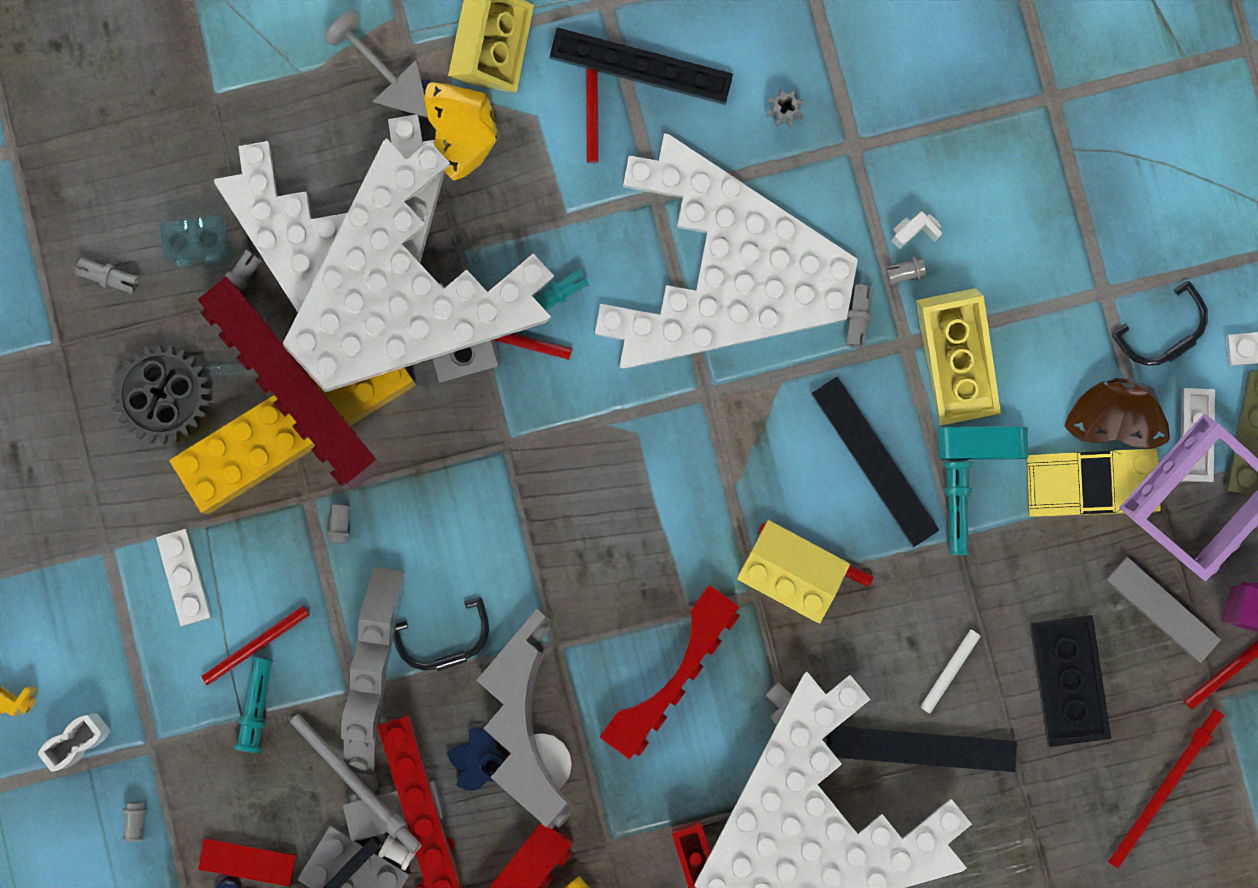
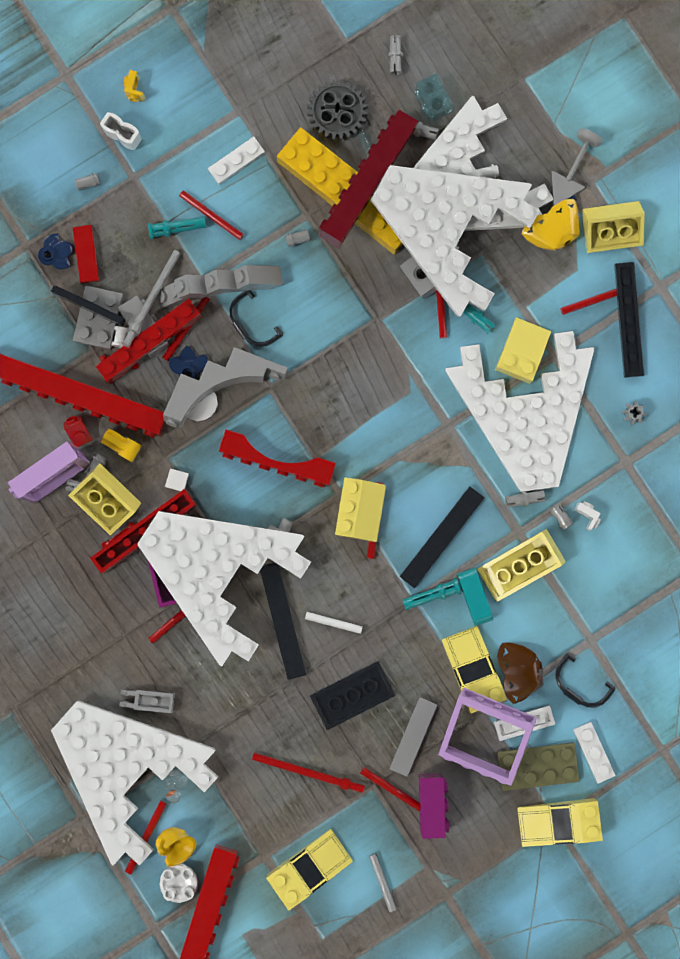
camera: 65 degrees right, 0 degrees up
(340, 197) = (489, 172): none -> white pin
(429, 758) = (180, 336): none -> red bar
(633, 240) = (523, 350): none -> light yellow slope
(650, 839) = (176, 480): none -> white tile

